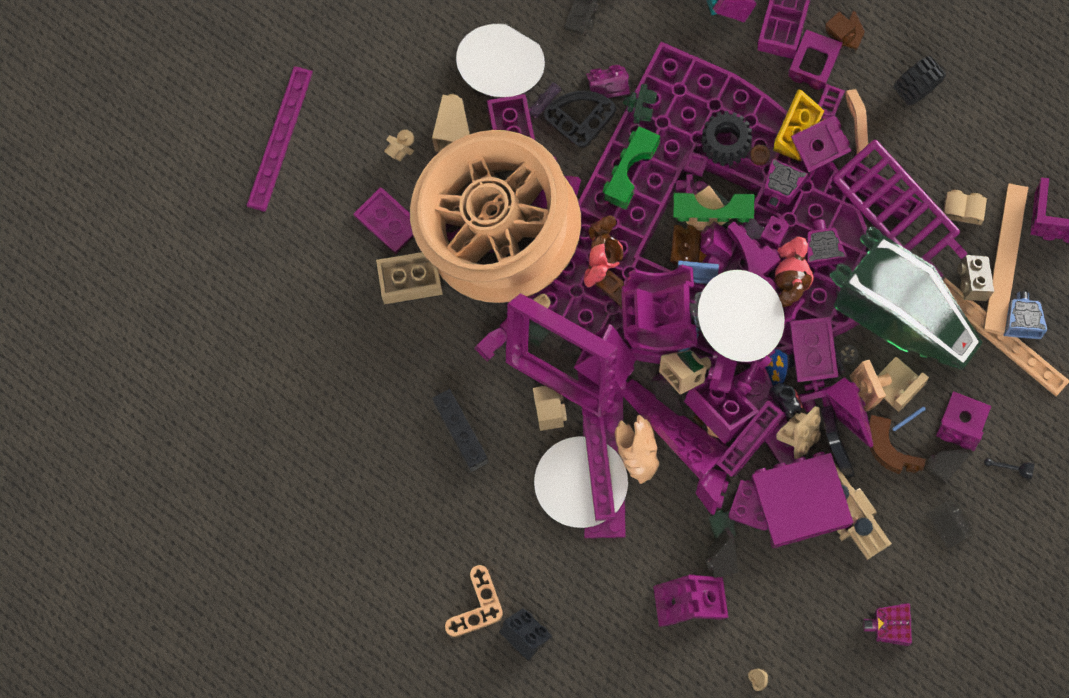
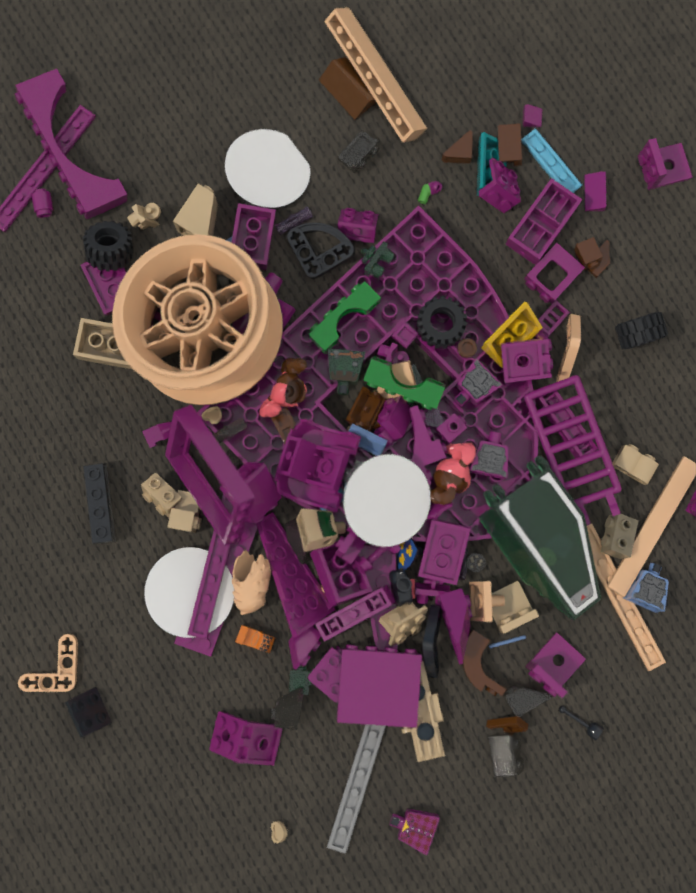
camera: 10 degrees right, 10 degrees up
(293, 170) = (42, 203): none -> magenta brick
(336, 142) = (92, 193): none -> magenta arch
(375, 185) = (108, 246): none -> black tyre
(517, 400) = (161, 494): none -> tan bracket
(567, 306) = (230, 430): none -> clear smoke axle
(650, 213) = (345, 368): none -> torso
(662, 503) = (255, 639): none -> orange leg
(663, 26) = (429, 189): none -> arm
(816, 607) = (355, 787): none -> light grey tile
(943, 492) = (509, 724): none -> reddish brown tile

